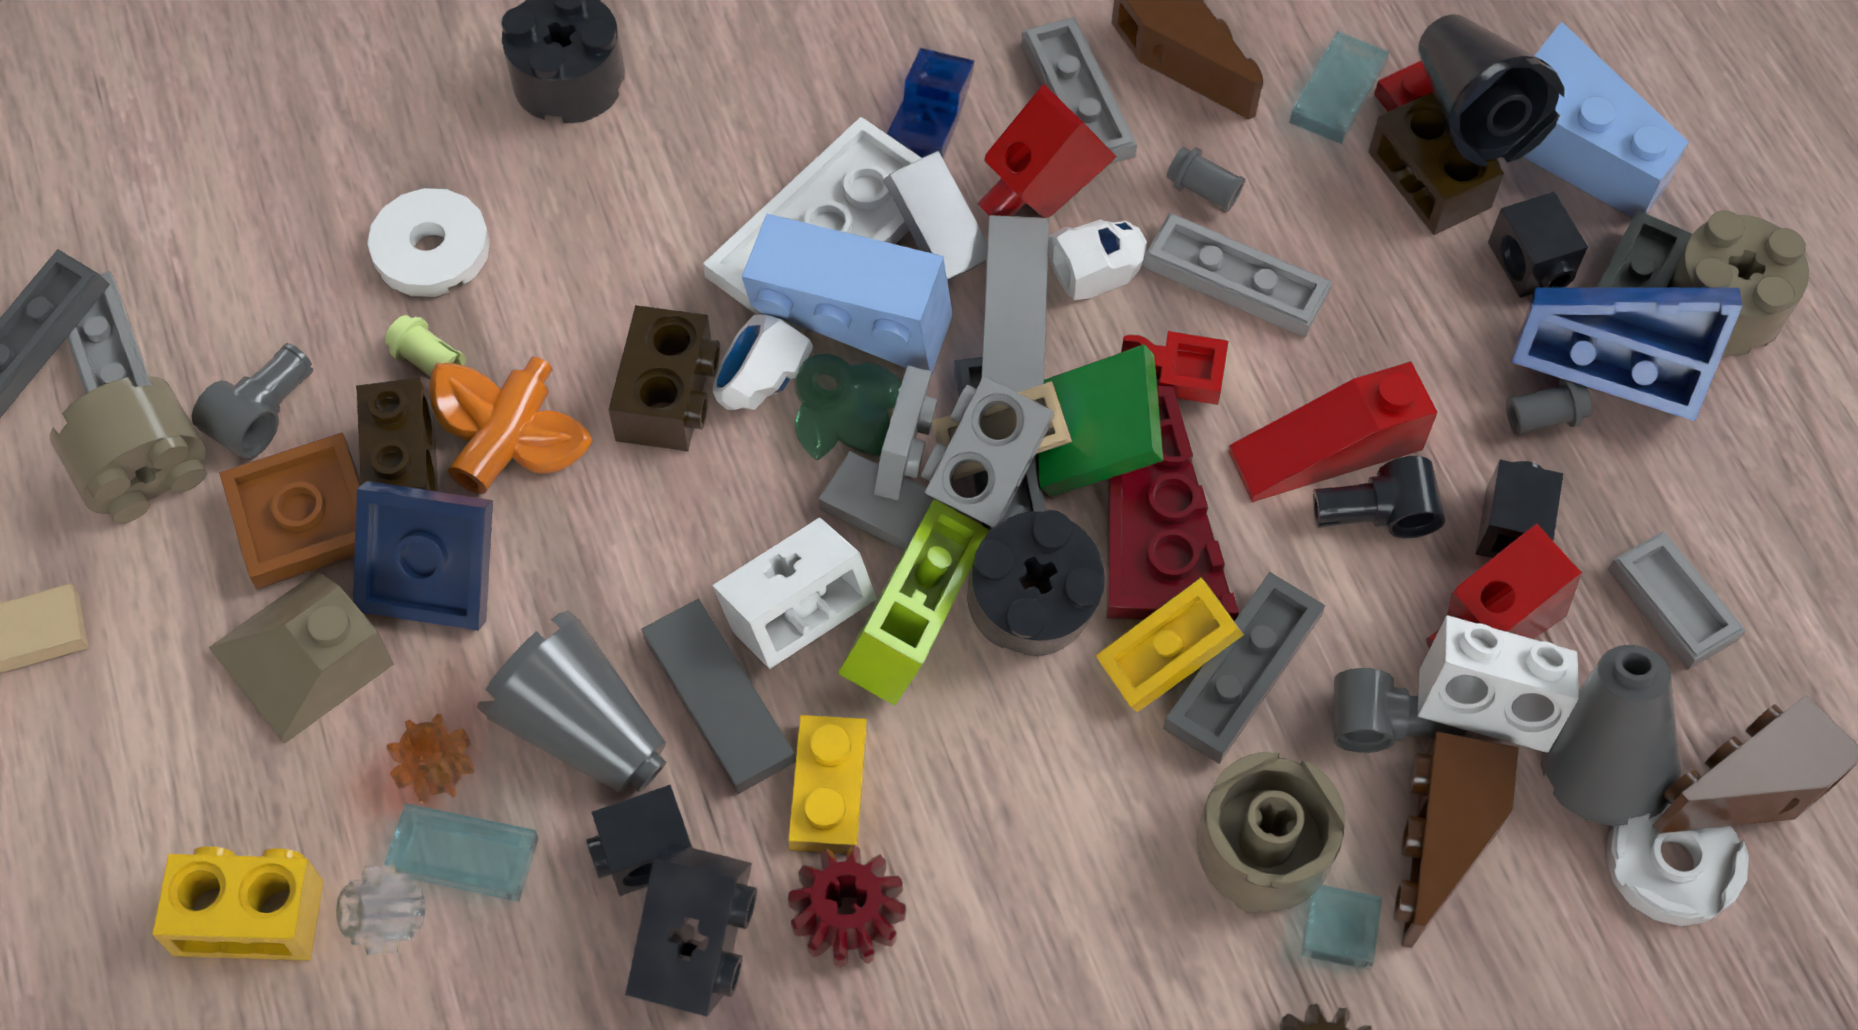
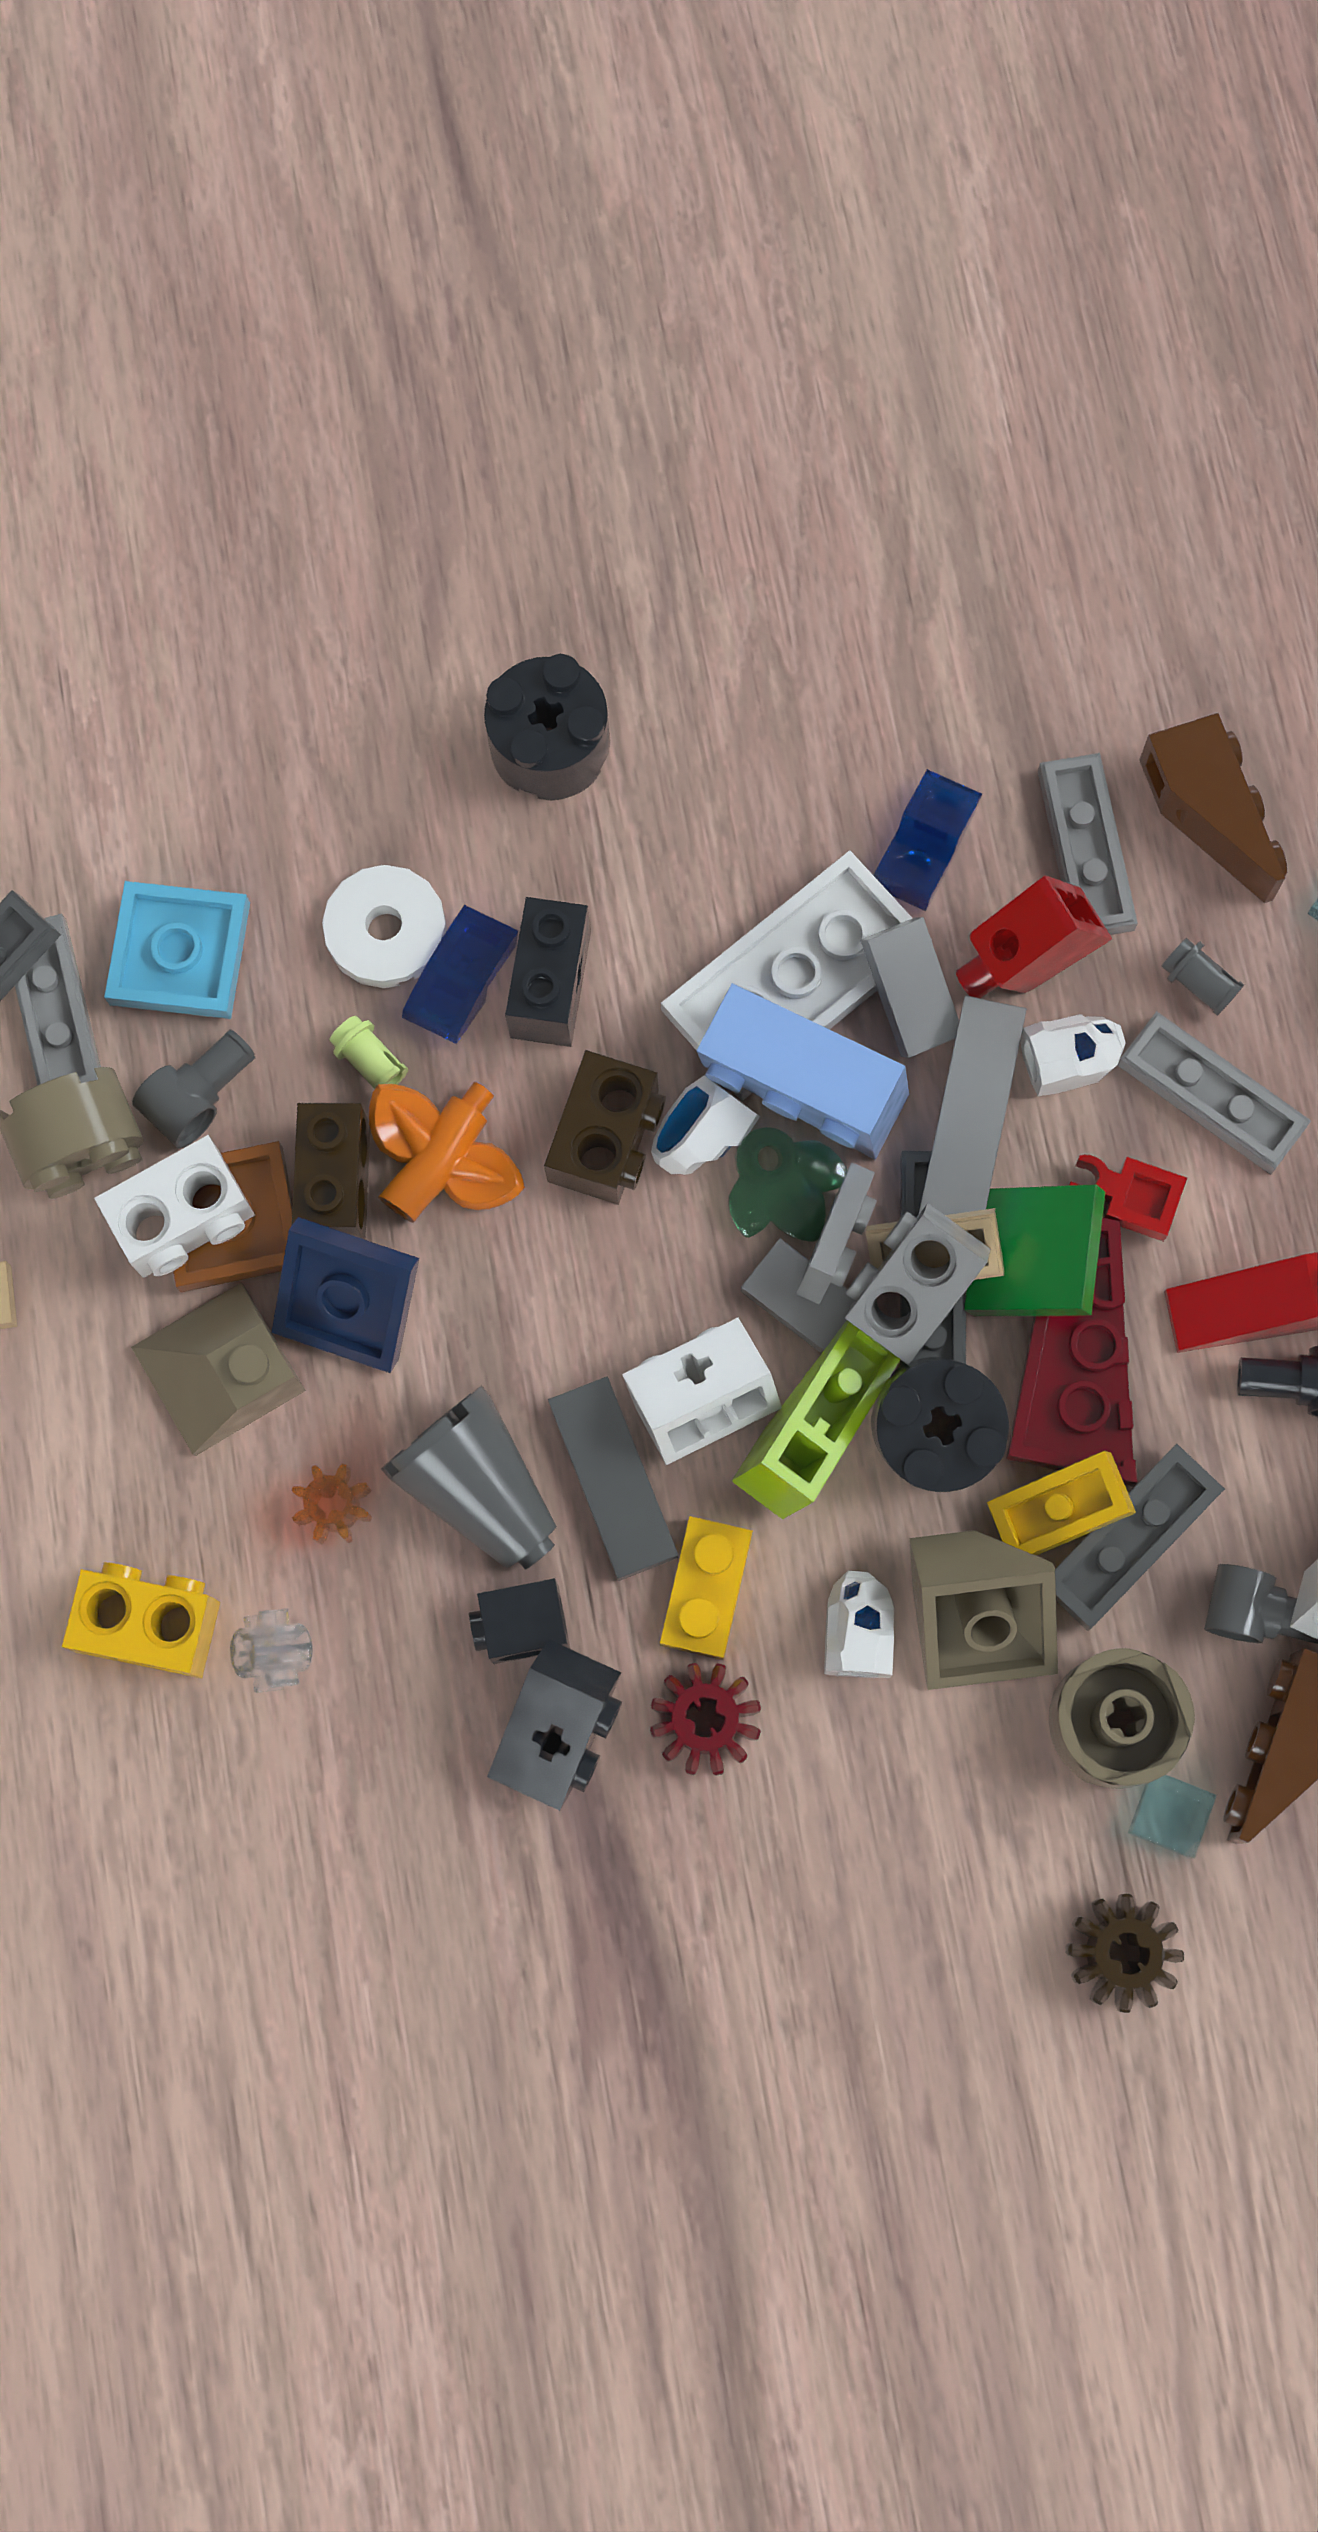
camera: 15 degrees right, 15 degrees up
(227, 286) = (177, 950): none -> medium azure plate
(233, 485) = (169, 1192): none -> white brick
(462, 851) = (351, 1599): clear light blue tile -> none
(504, 270) = (459, 974): none -> clear blue slope
(591, 252) = (548, 971): none -> black brick
(990, 797) = (859, 1628): none -> white rock
(1112, 755) = (982, 1610): none -> dark tan slope

